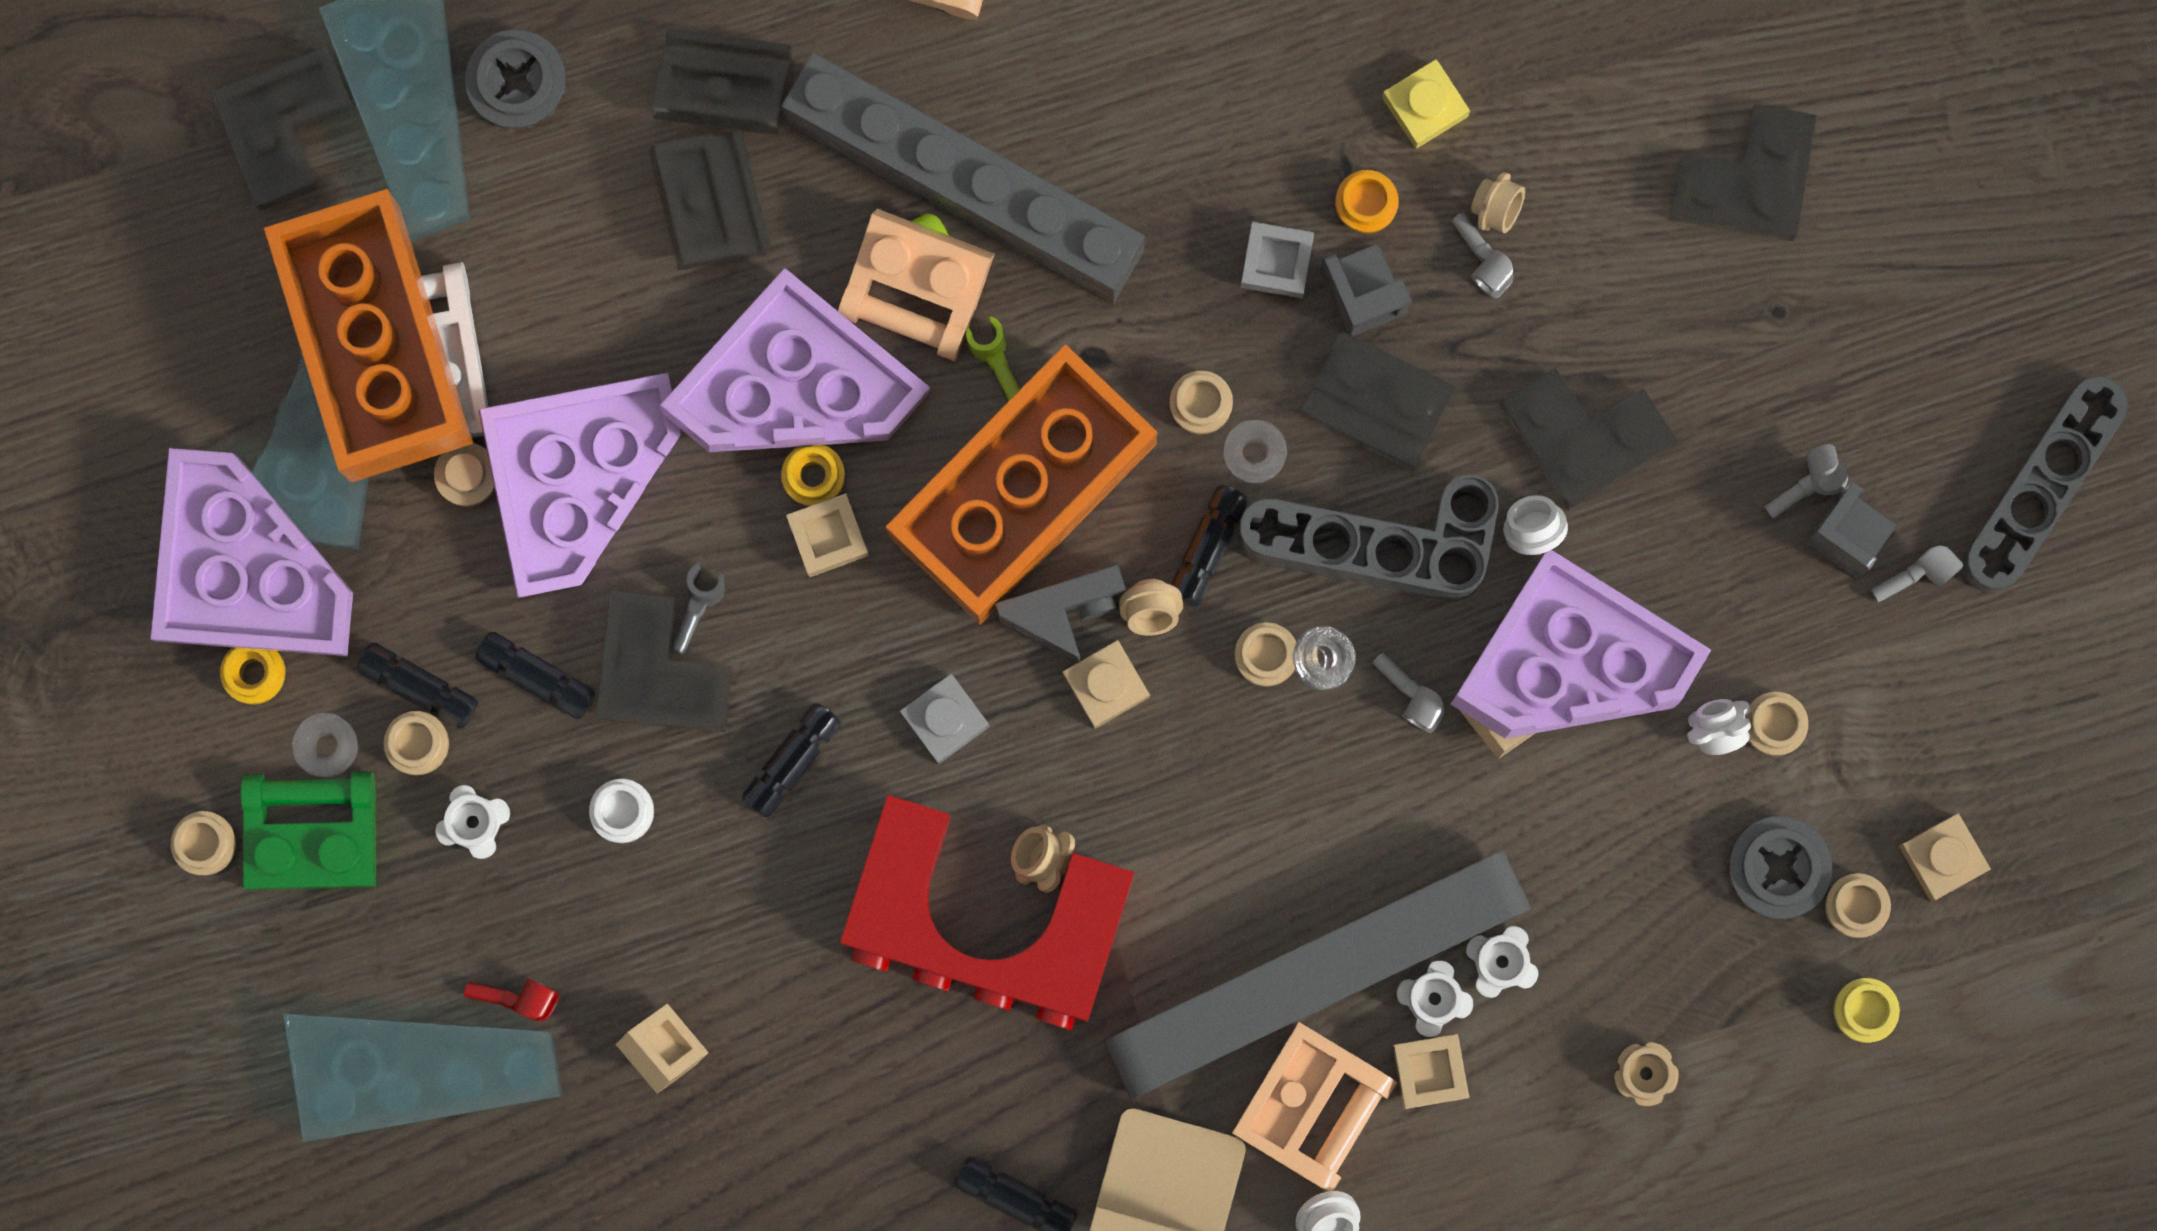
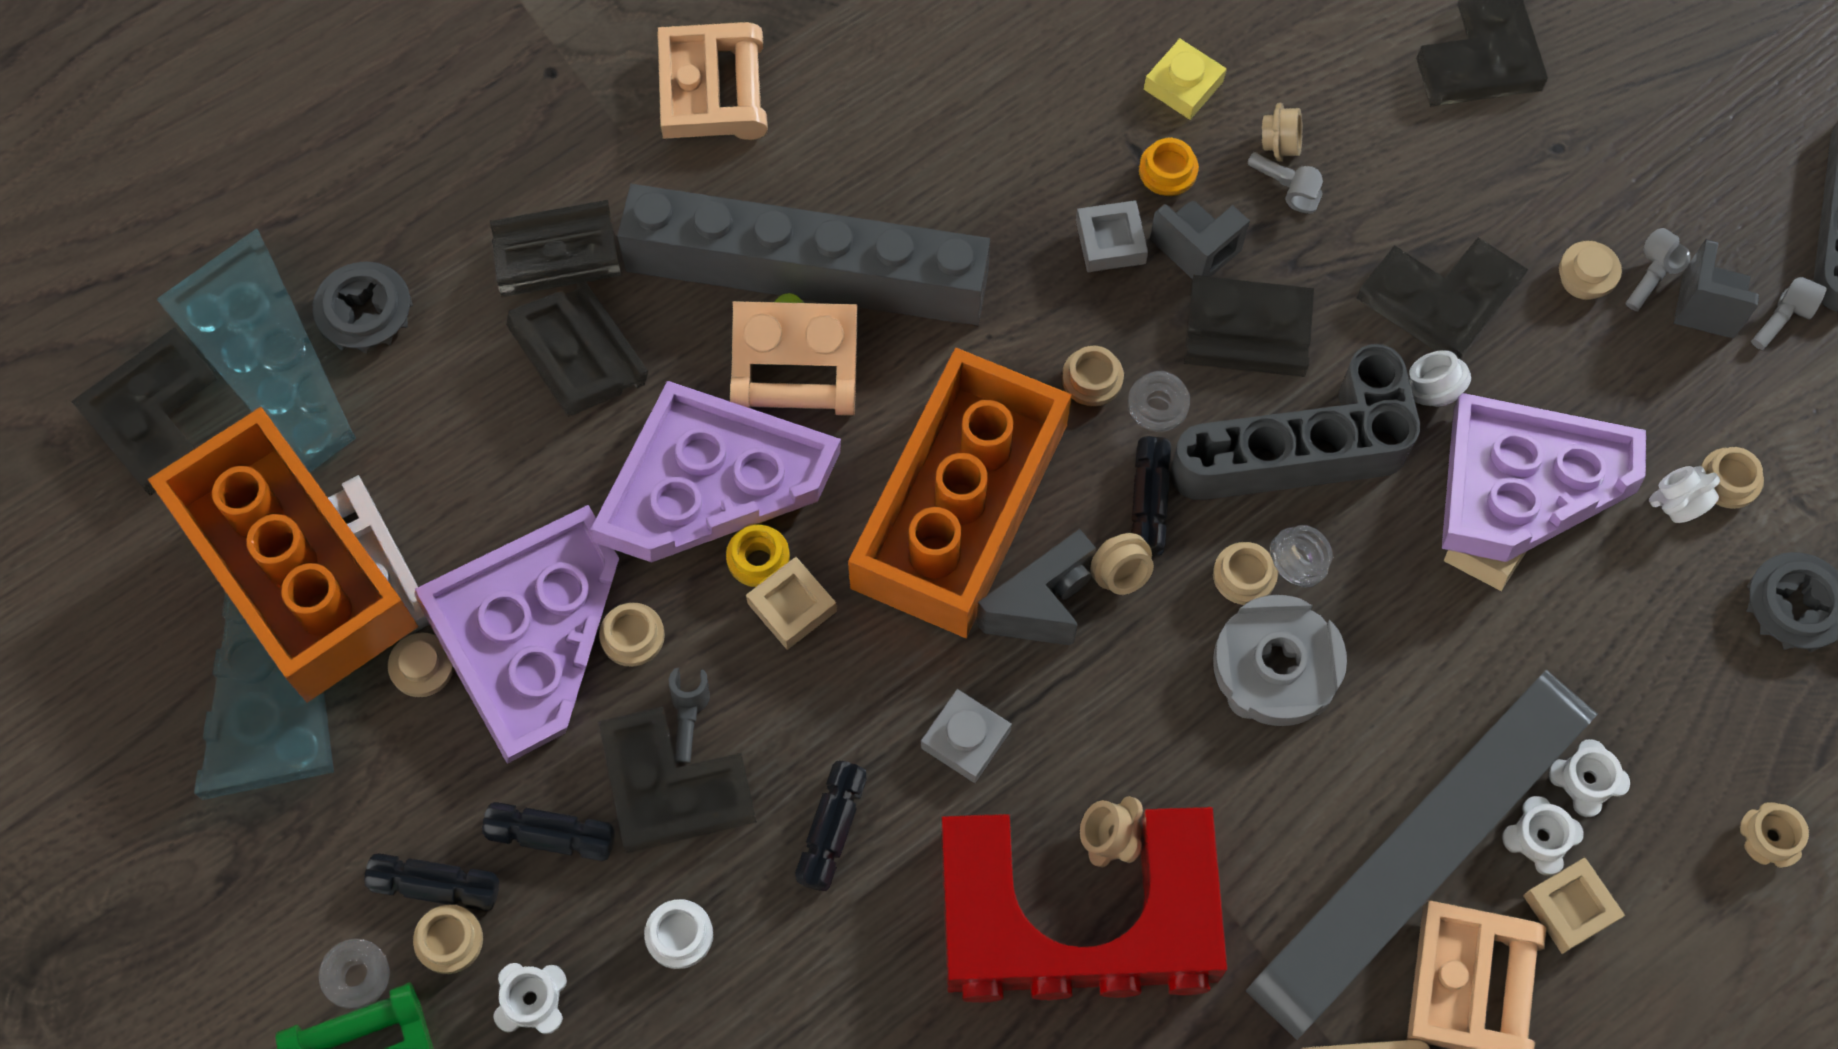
camera: 20 degrees left, 15 degrees down
(233, 680) = (243, 915): yellow plate -> none
(240, 566) = (215, 821): lavender plate -> none
(670, 512) = (632, 634): none -> tan plate
(994, 356) = (885, 397): lime hand -> none
(1106, 684) = (1107, 652): tan plate -> none
(1293, 733) = (1303, 634): none -> light grey plate
(1426, 705) = (1410, 565): light grey hand -> none
(1741, 460) = (1589, 270): none -> tan plate

